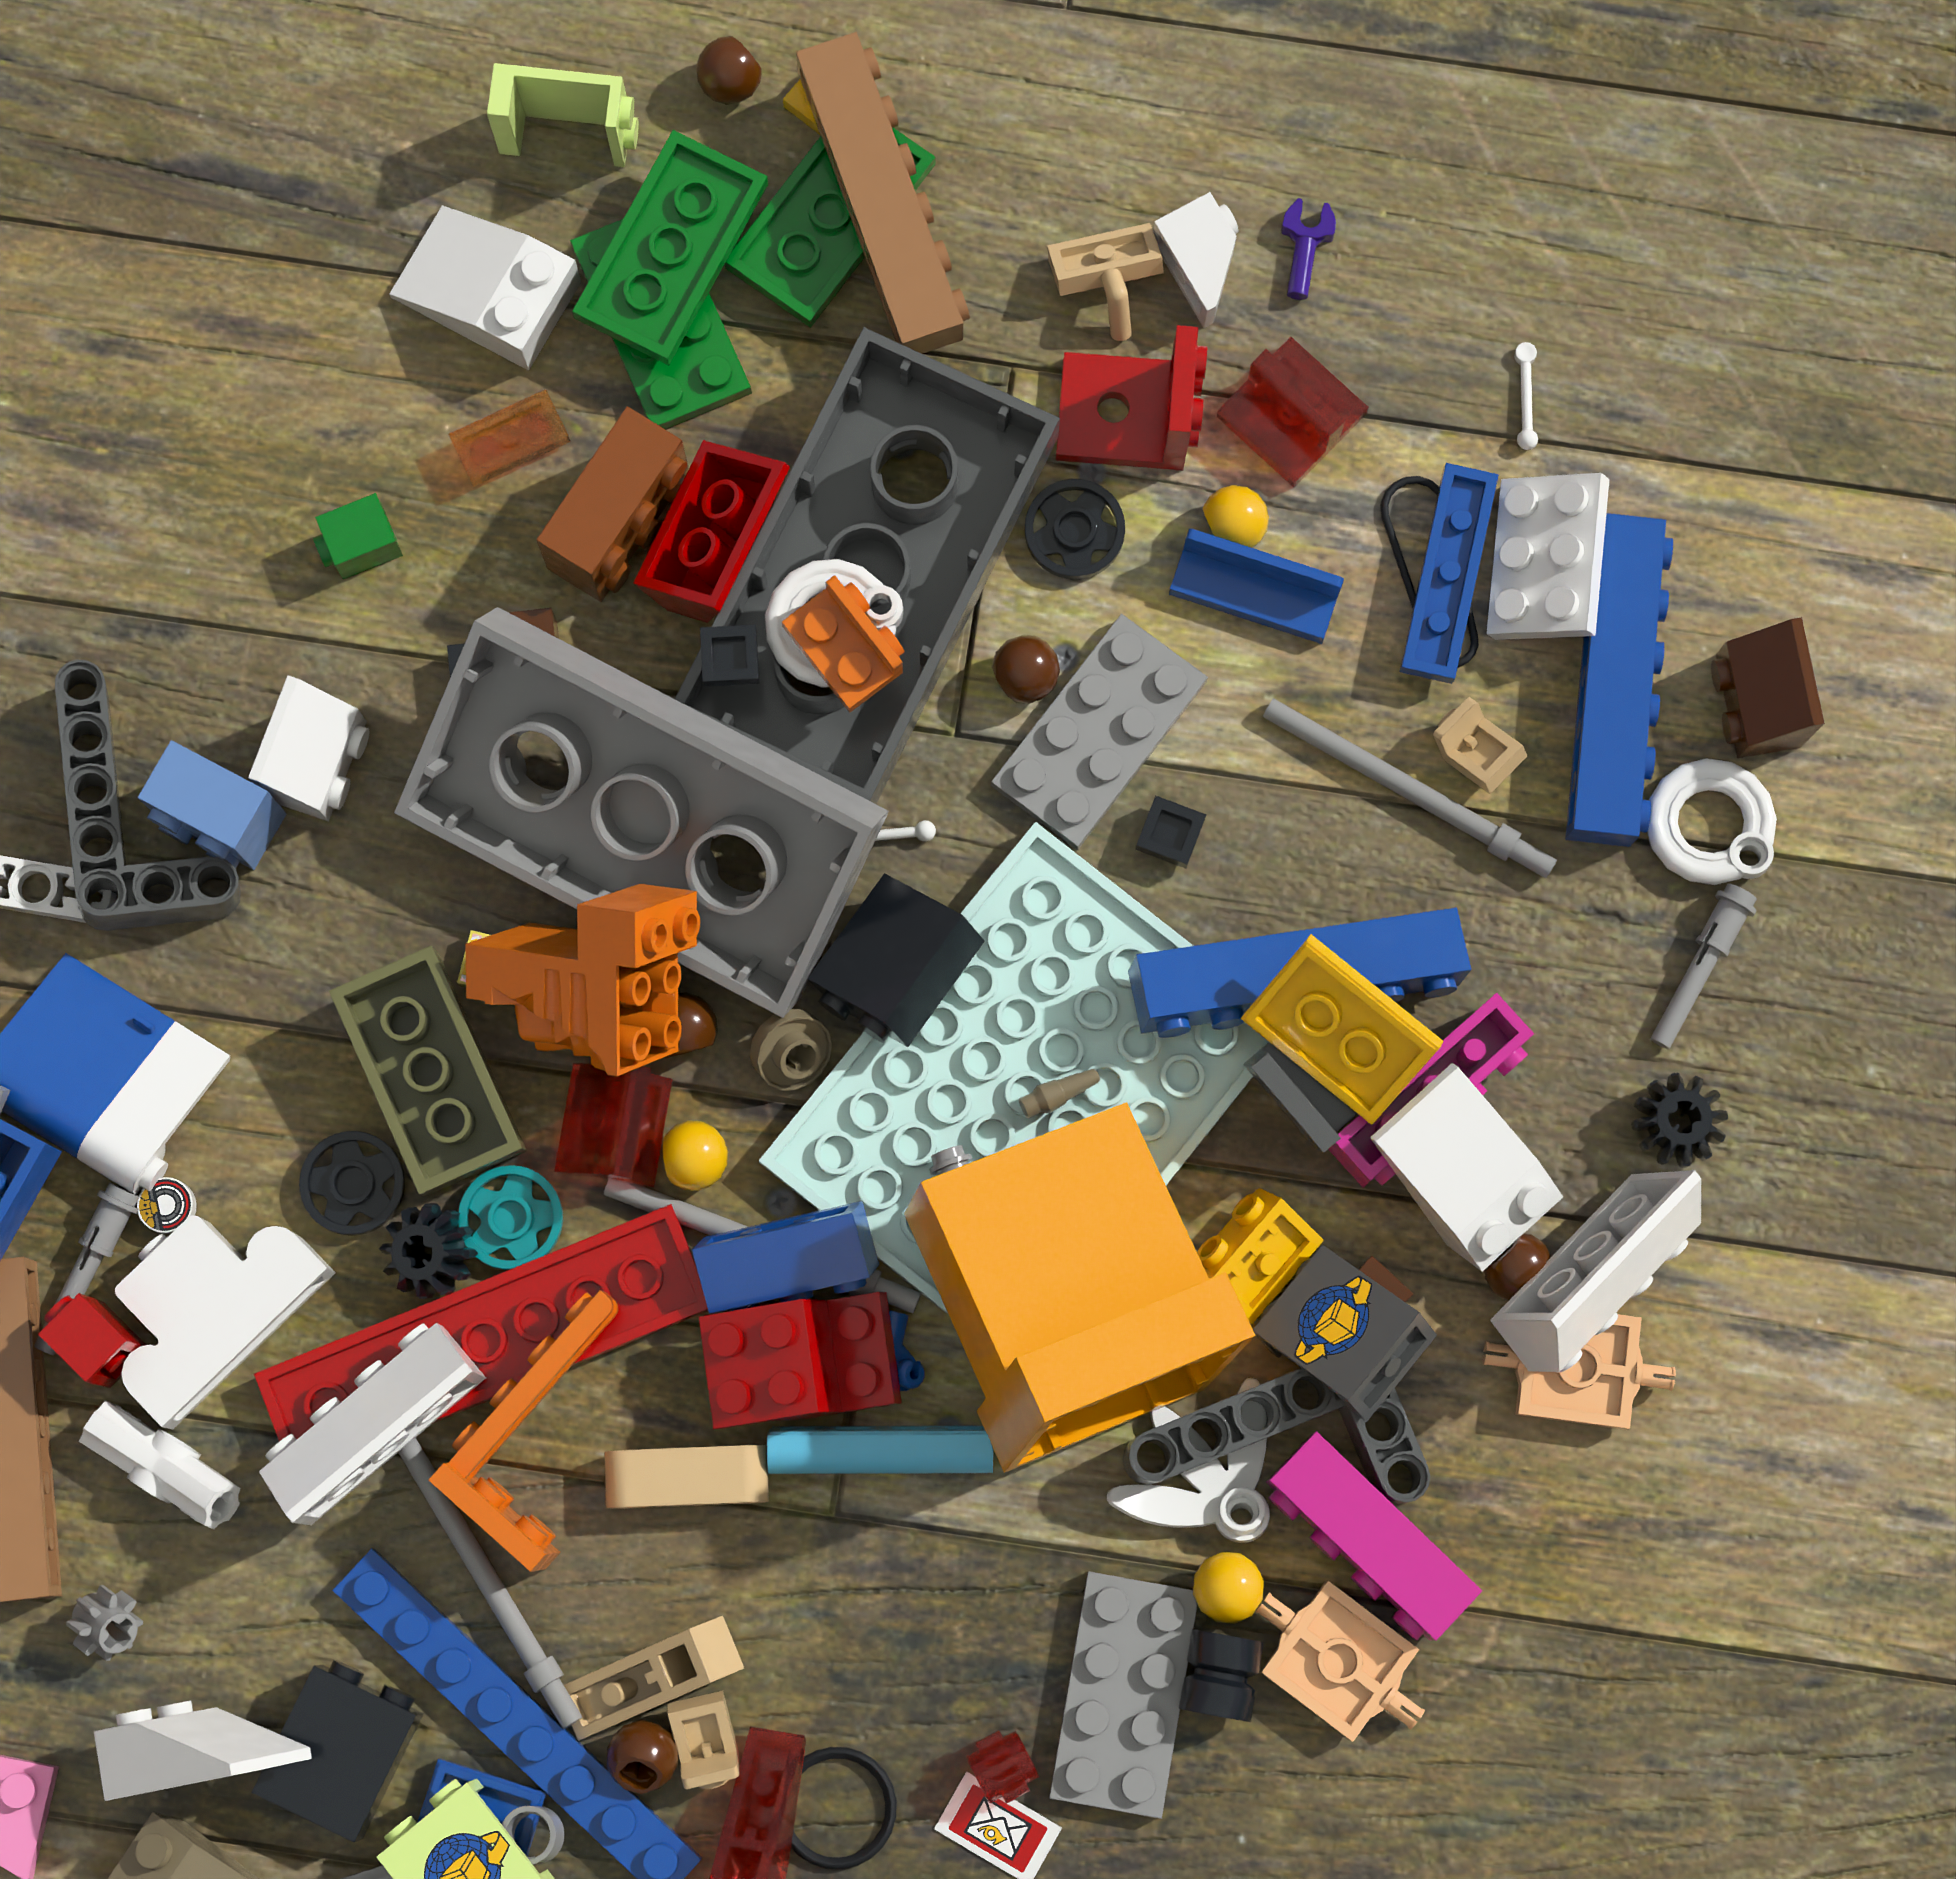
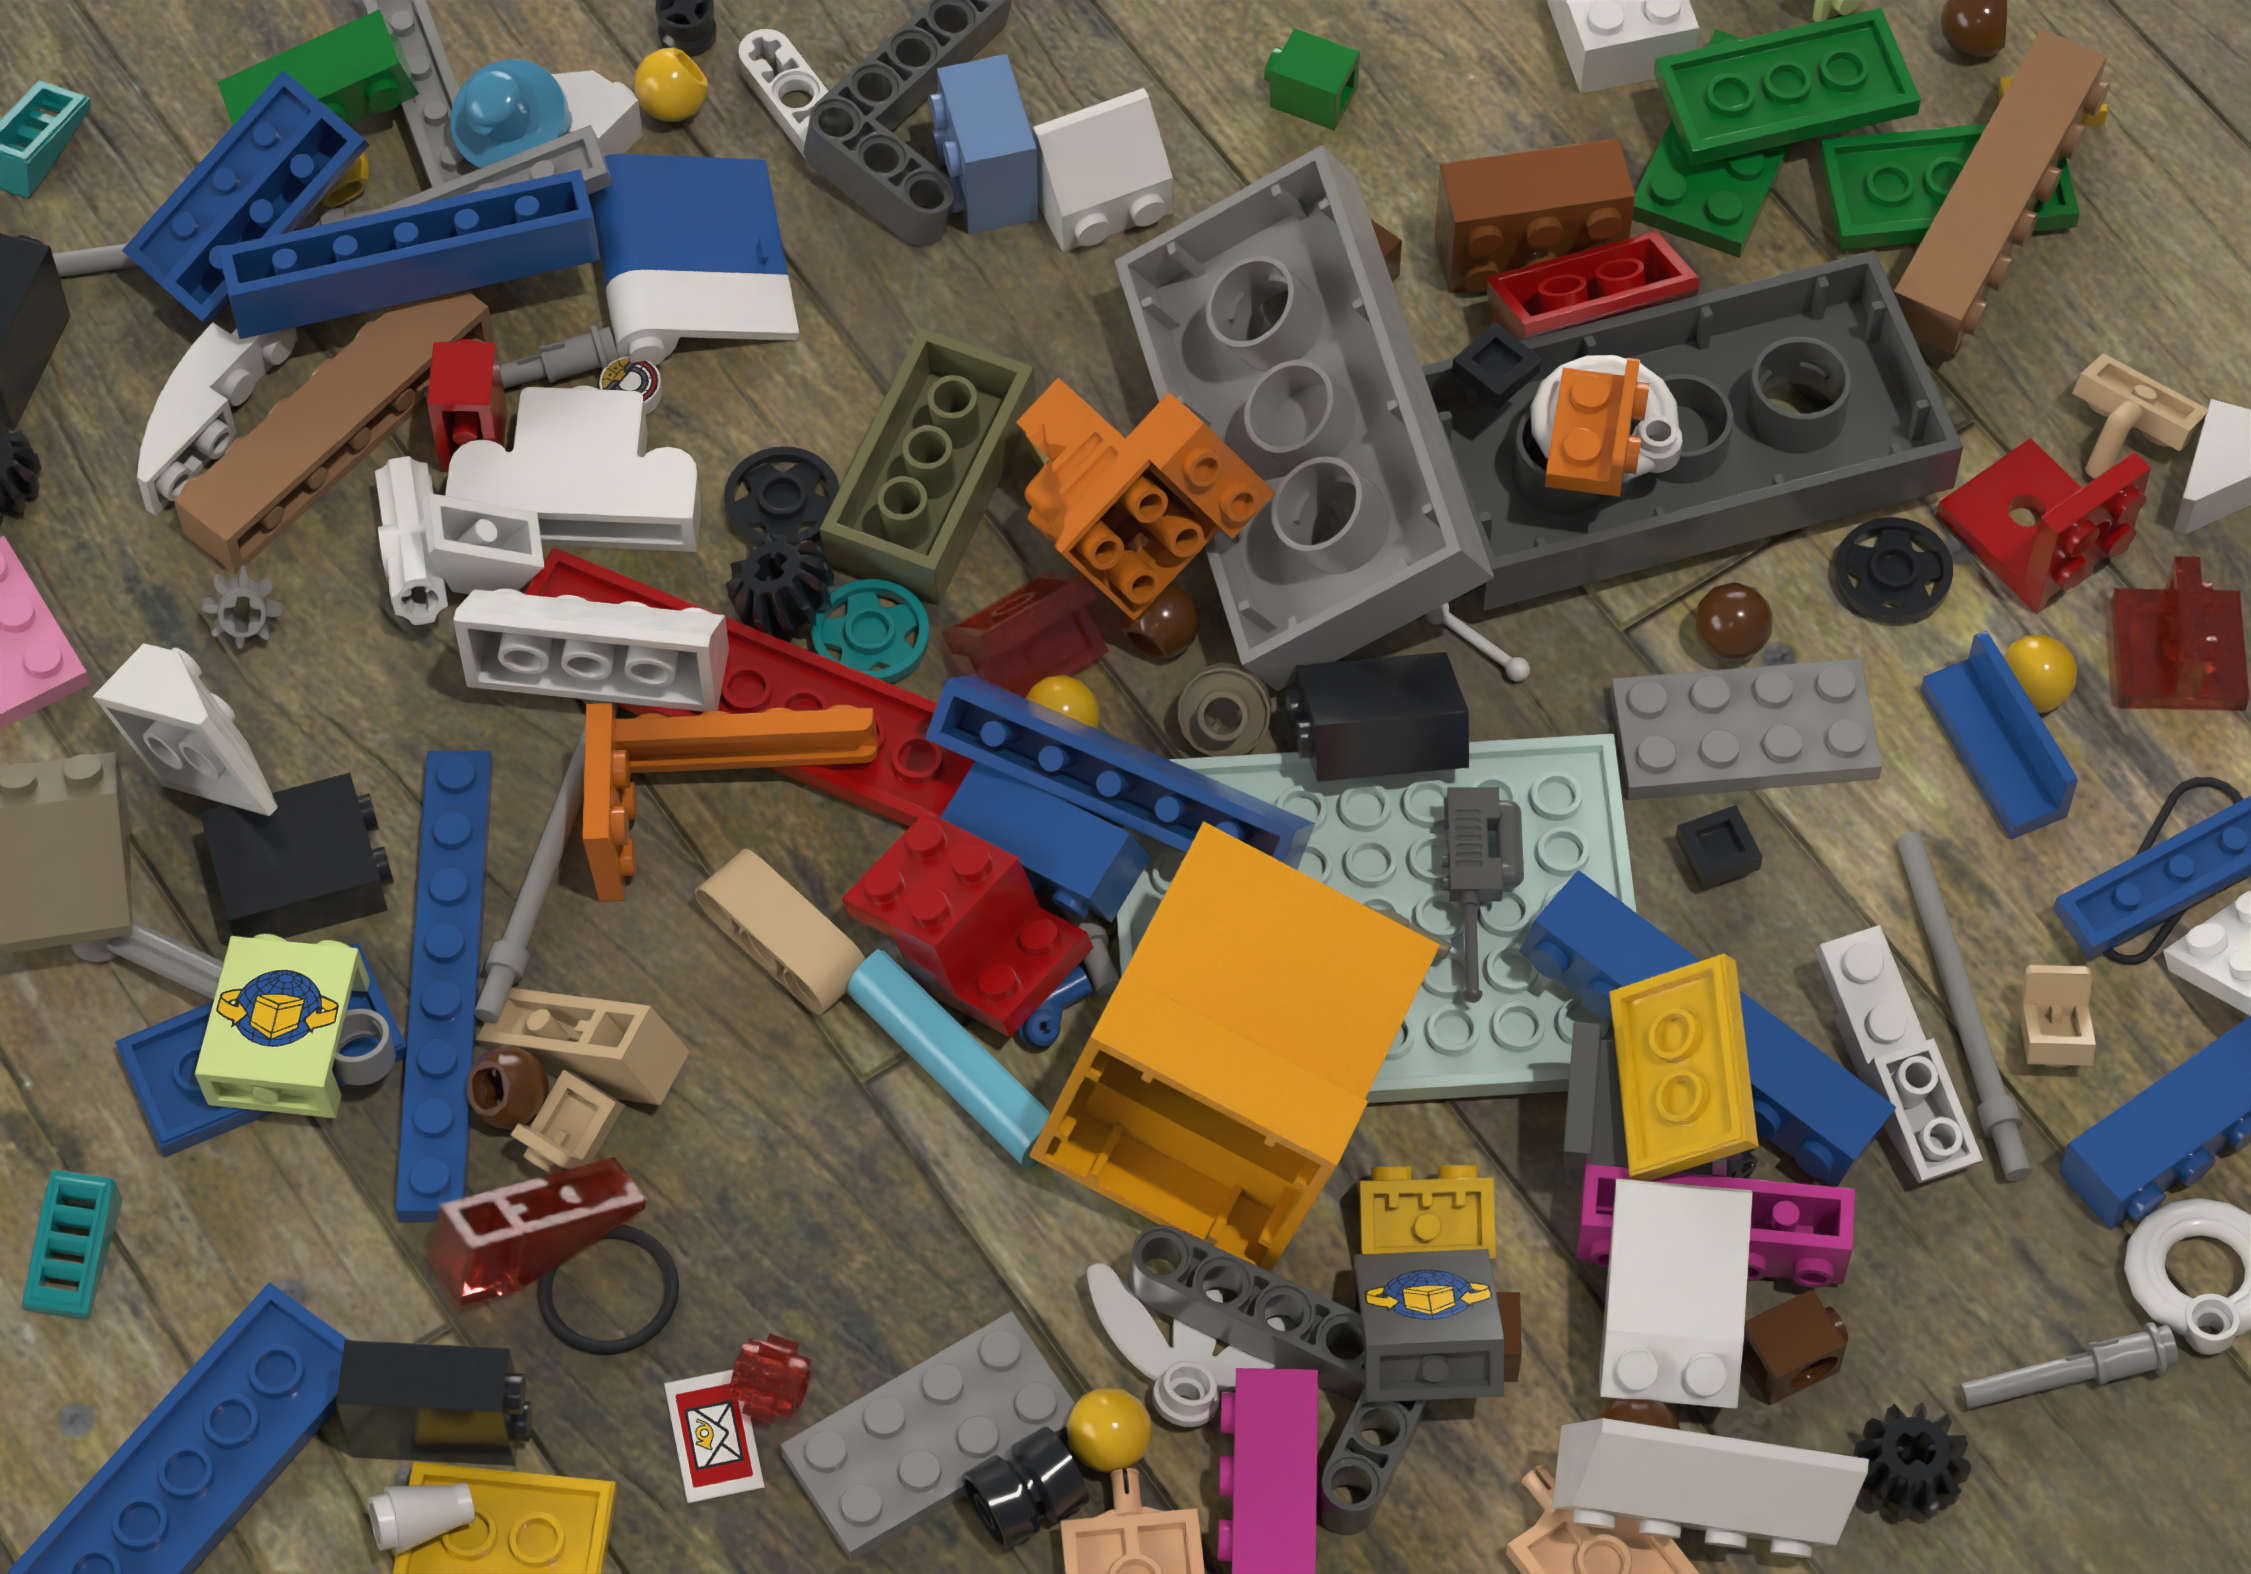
camera: 50 degrees right, 20 degrees down
(218, 1427) = (481, 543): none -> white slope
(509, 437) = (1507, 114): clear orange plate -> none
(796, 1176) = (1105, 772): none -> blue brick
(1057, 1010) = (1472, 874): none -> dark grey piece
(1415, 869) = (1895, 1056): none -> white slope
(1546, 1115) = (1793, 1346): none -> reddish brown brick

